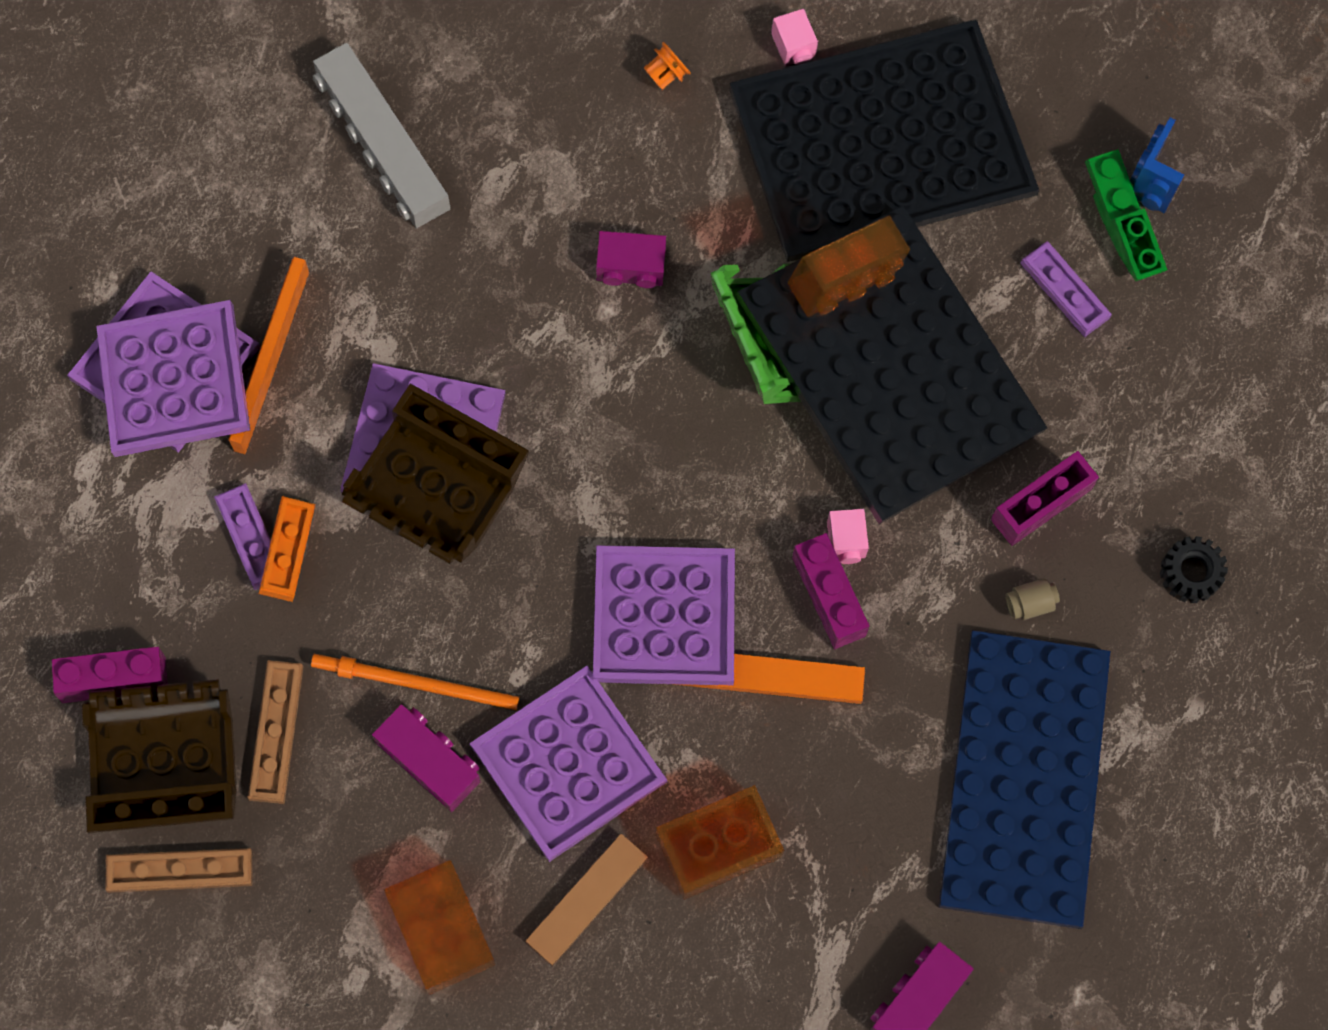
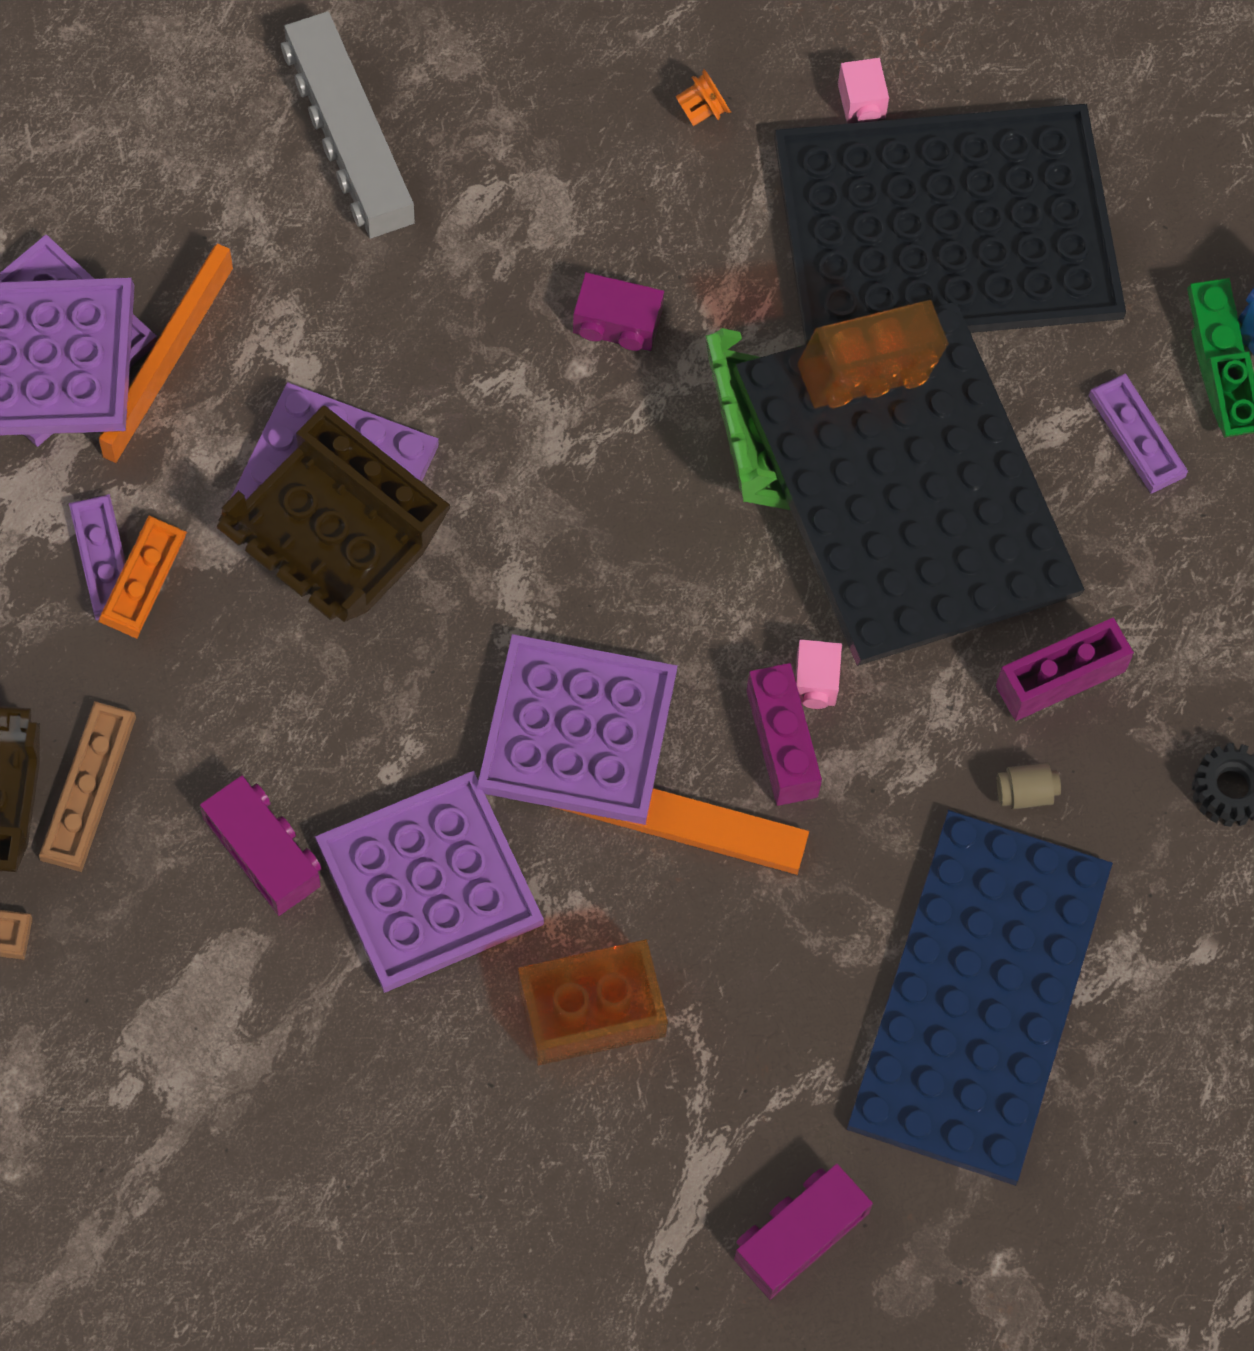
camera: 10 degrees right, 5 degrees down
(348, 667) = (189, 727): orange bar -> none
(439, 927) = (237, 1043): clear orange brick -> none
(586, 900) = (420, 1044): medium nougat tile -> none

